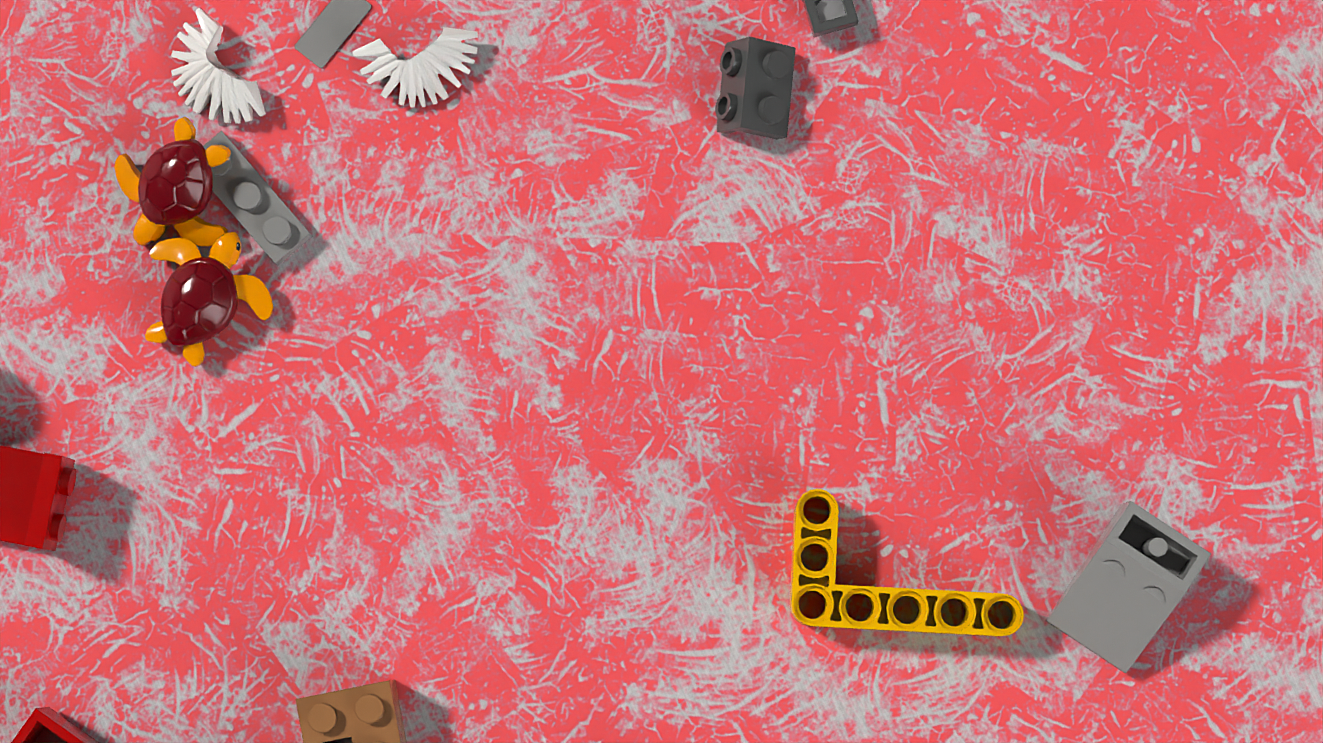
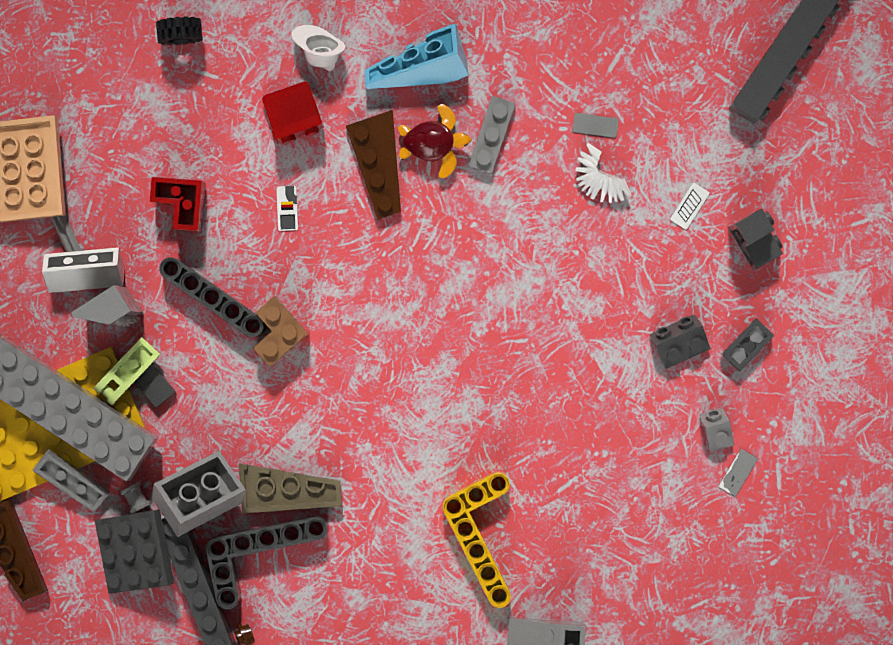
camera: 60 degrees right, 5 degrees up
(75, 222) = (428, 63): none -> medium azure wedge
(169, 597) = (287, 208): none -> sticker
(171, 402) = (376, 155): none -> reddish brown wing
(174, 187) = (476, 99): dark red animal -> none
(209, 79) = (537, 84): white hair -> none
(931, 110) = (717, 429): none -> light grey bracket
(1019, 118) = (738, 472): none -> light grey sticker

